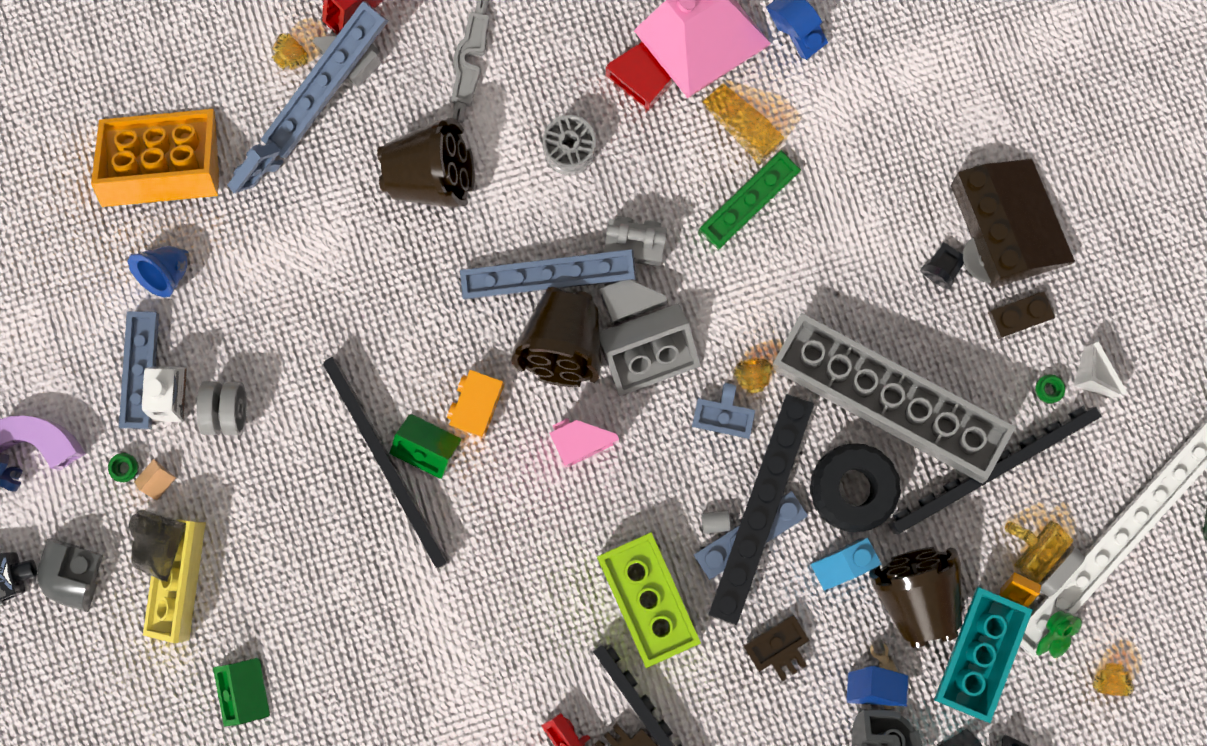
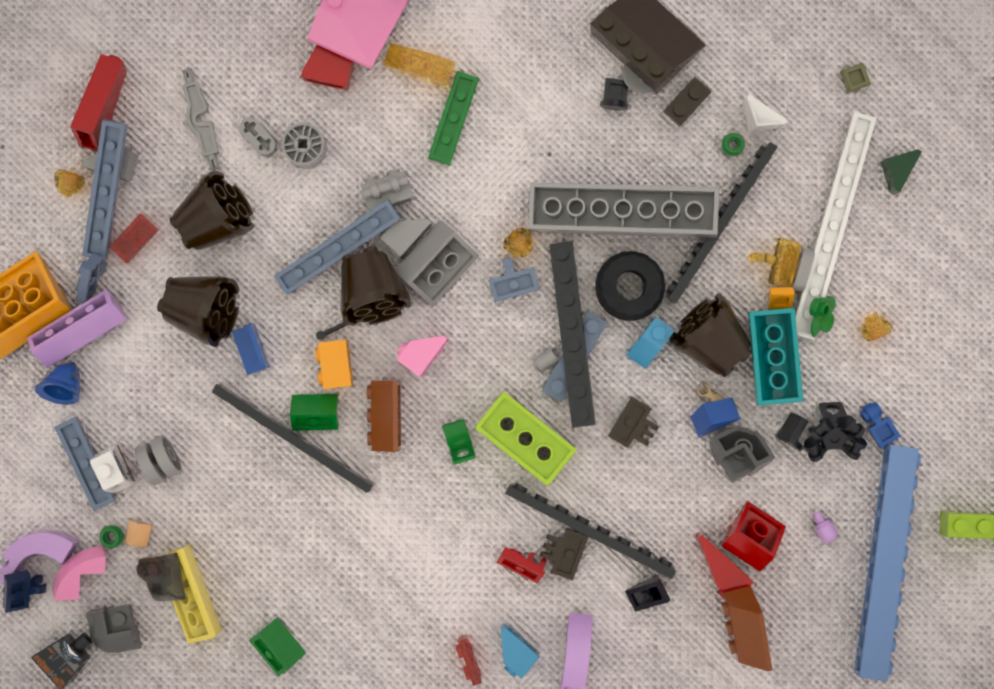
camera: 20 degrees left, 5 degrees up
(47, 489) = (67, 579): none -> bright pink brick
(210, 215) = (76, 328): none -> lavender brick
(327, 150) = (134, 238): none -> clear red plate
(361, 262) = (201, 306): none -> dark brown cone
(391, 338) = (250, 349): none -> blue panel
(477, 364) = (320, 335): none -> black hinge
(501, 490) = (384, 415): none -> dark orange slope
(517, 111) = (253, 140): none -> light grey beam
(570, 563) = (458, 441): none -> green bracket

